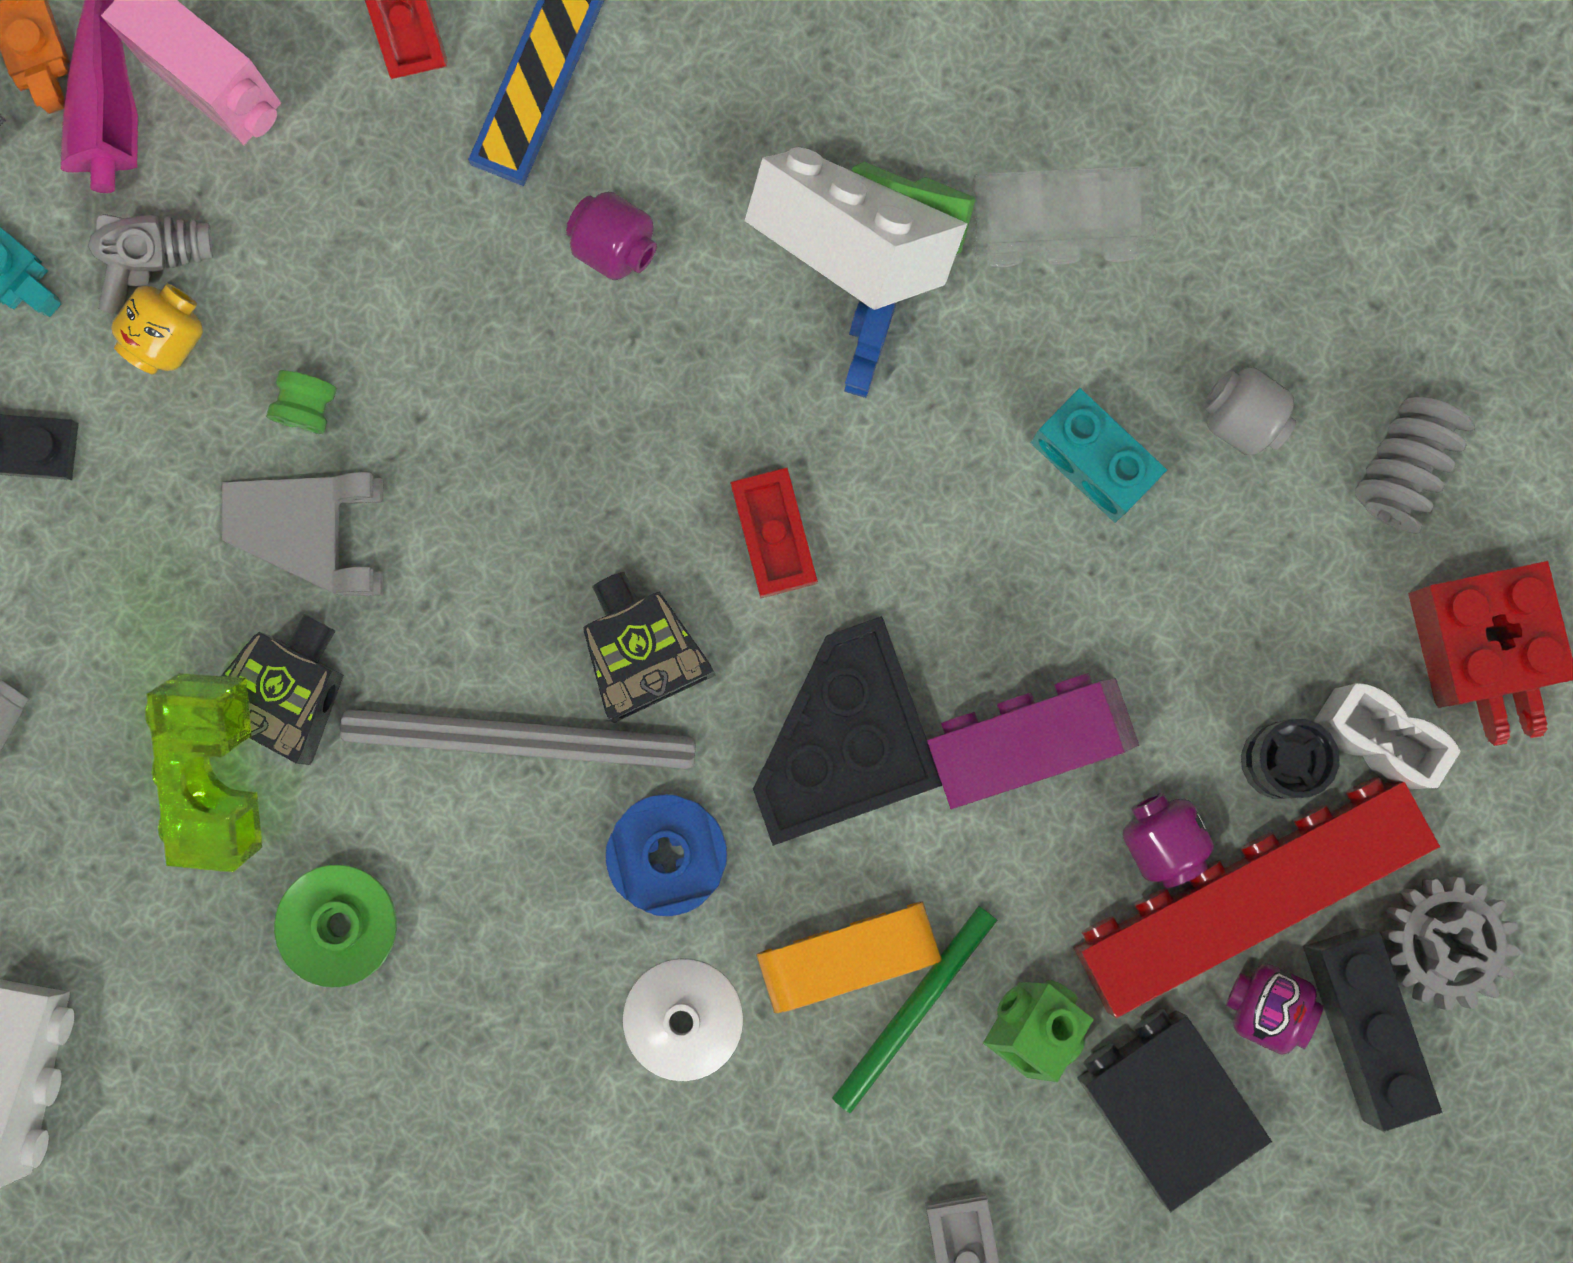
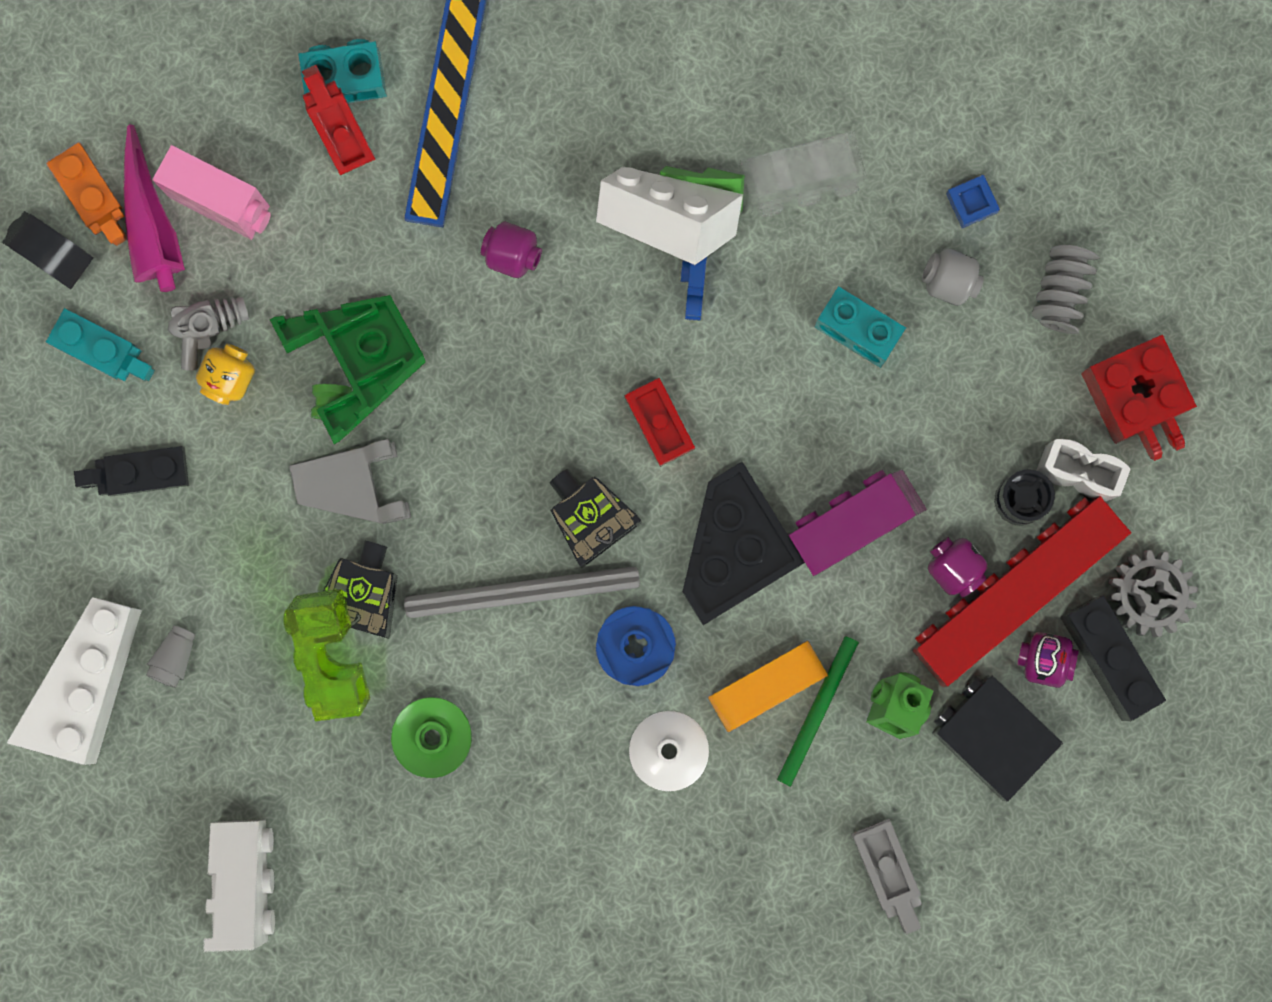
camera: 10 degrees left, 0 degrees up
(374, 336) = (371, 349): none -> green wing
(1302, 308) = (972, 201): none -> blue plate

